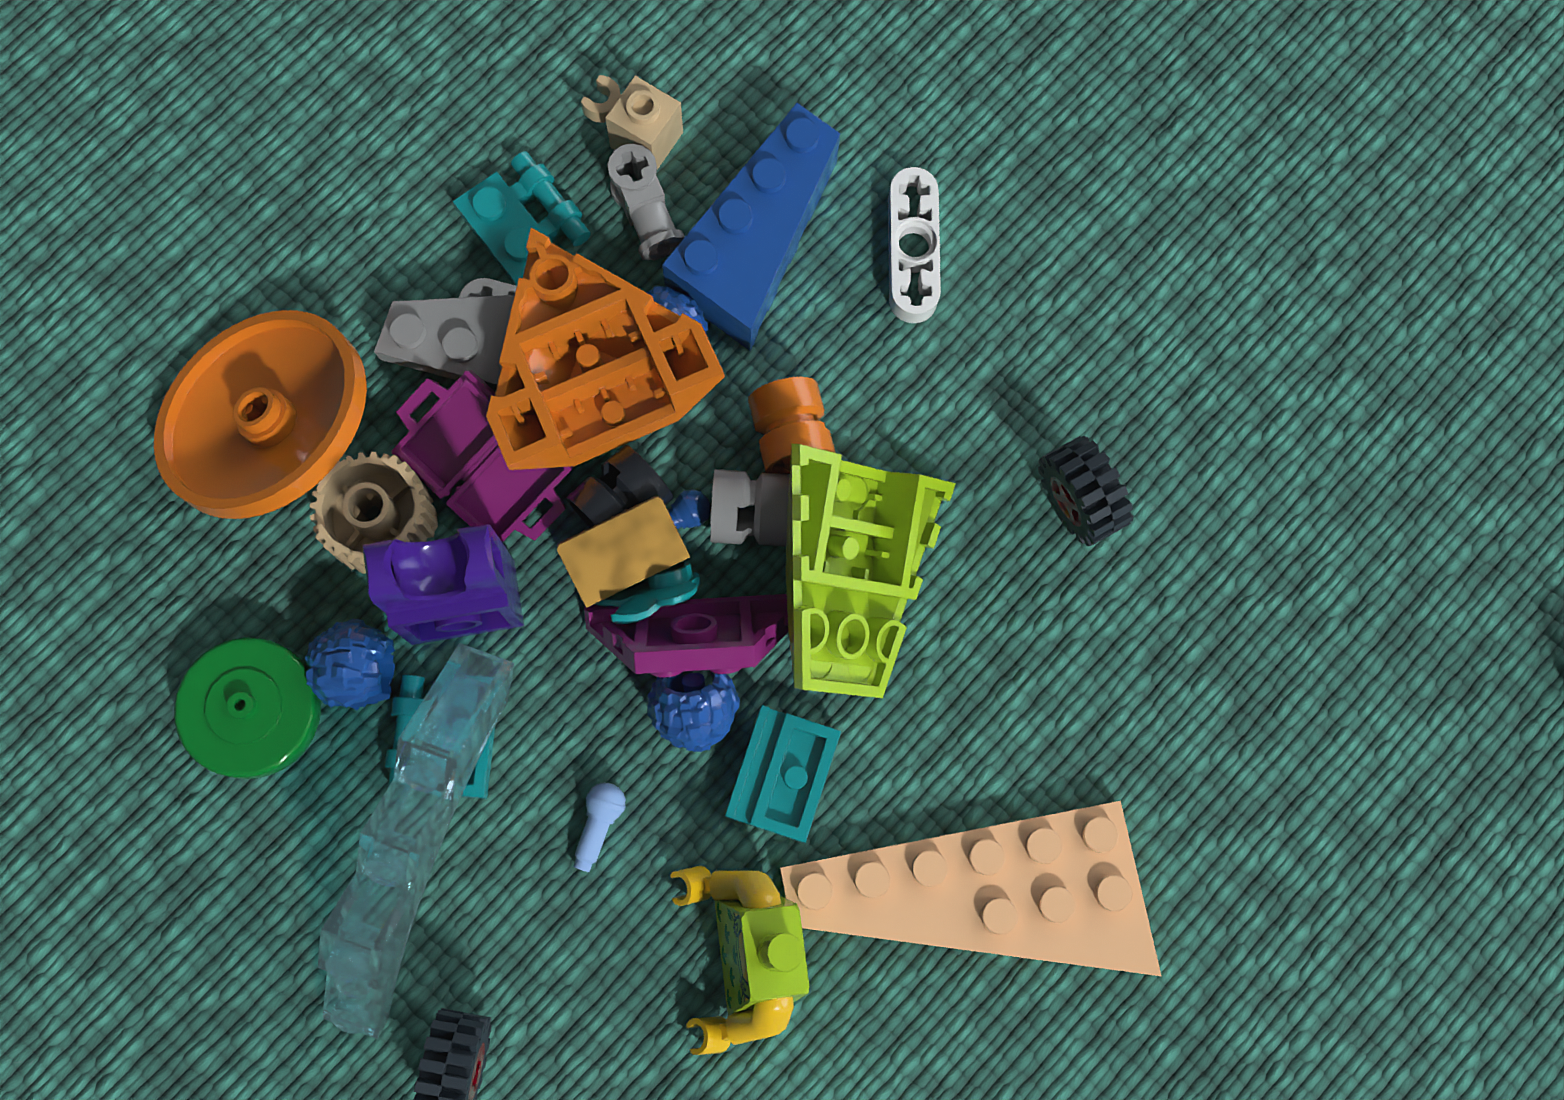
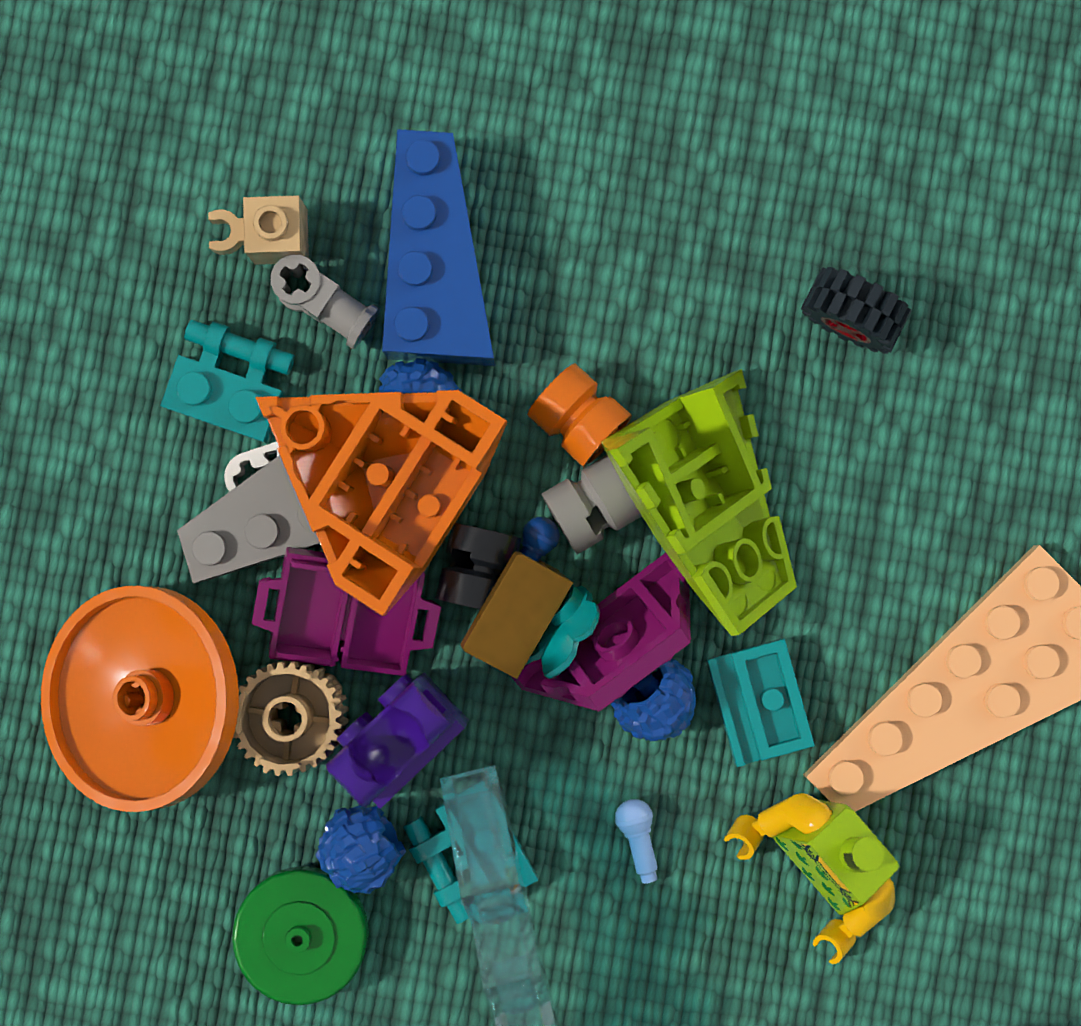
camera: 25 degrees left, 10 degrees up
(927, 226) = (538, 157): white beam -> none

